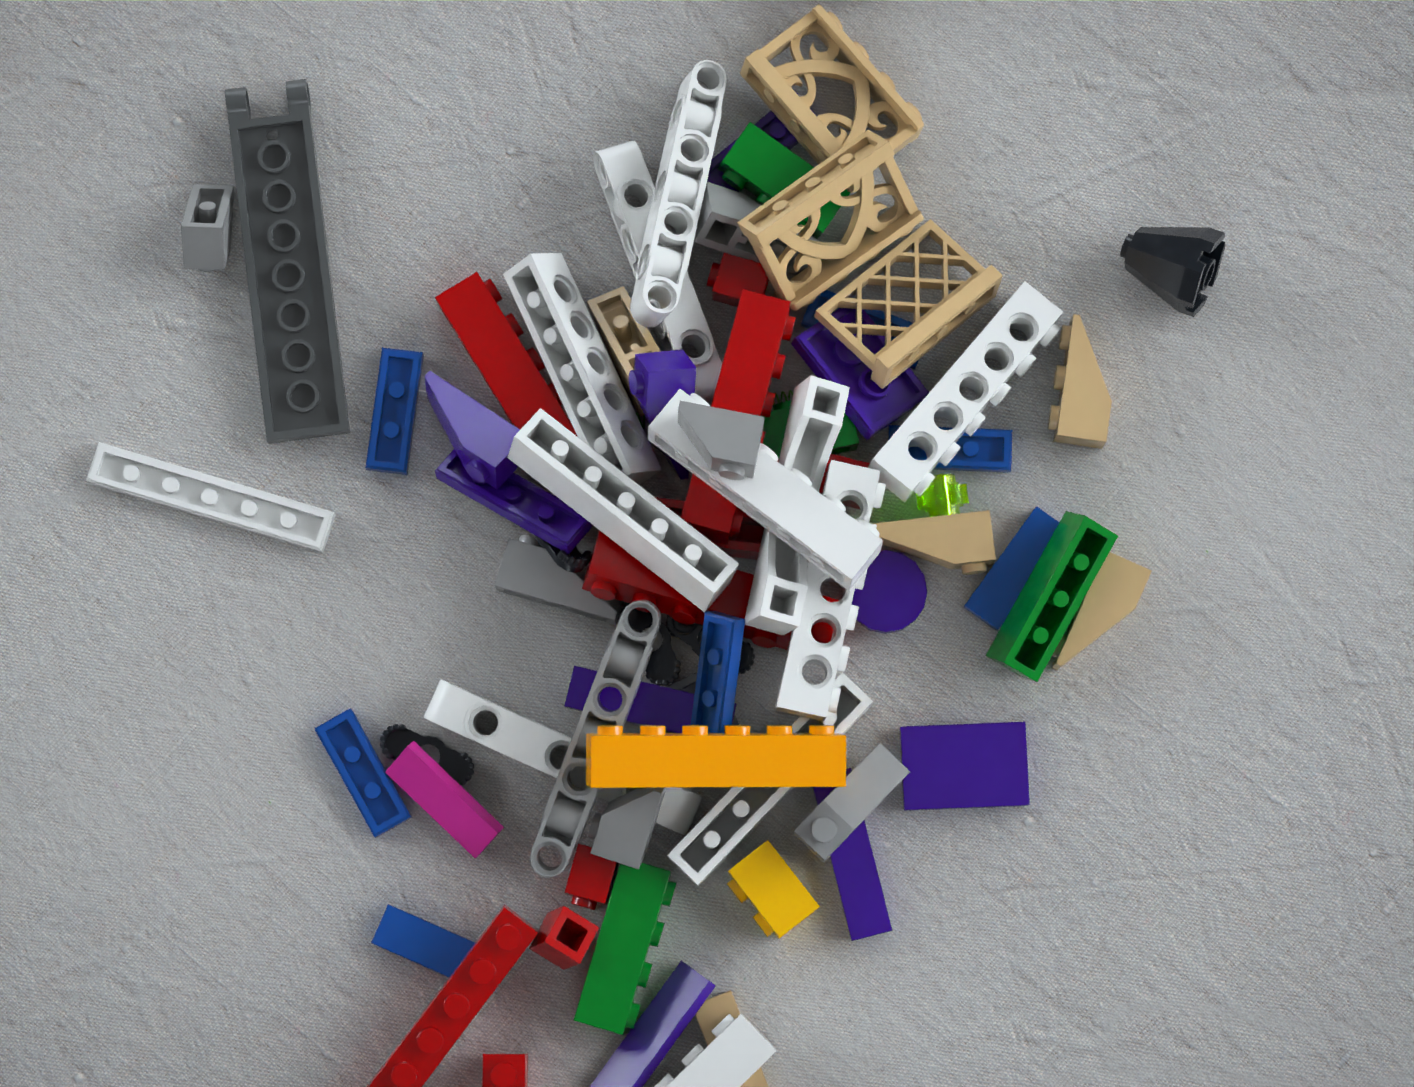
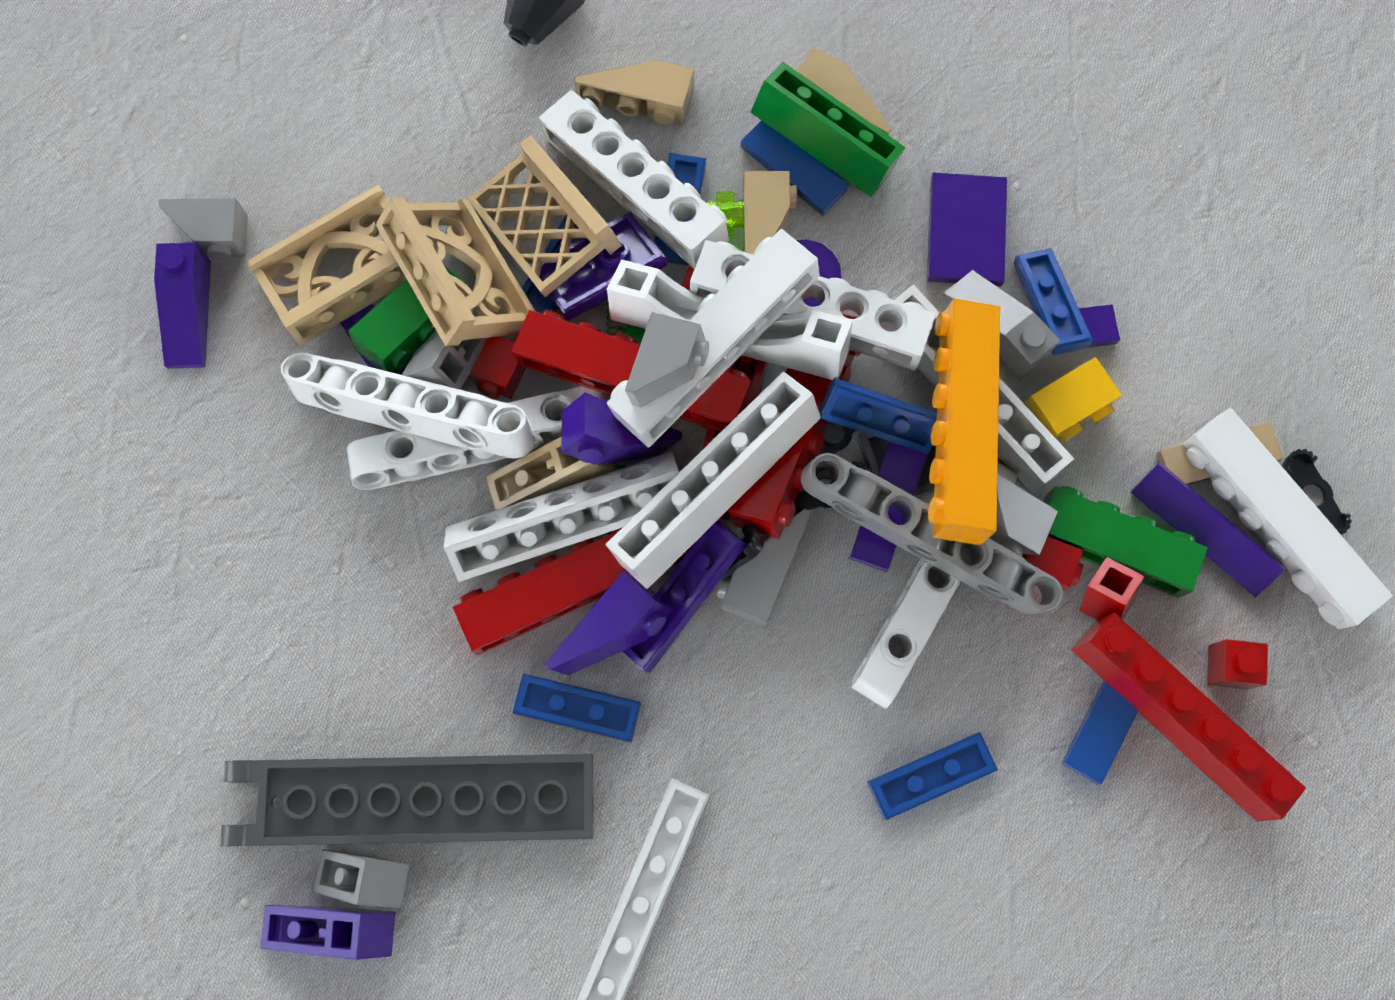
camera: 85 degrees left, 5 degrees down
(157, 204) = (328, 931): none -> dark purple slope
(444, 799) = (967, 696): dark pink tile -> none
(456, 764) = (934, 687): black piece -> none
(885, 862) = (1052, 299): none -> blue tile

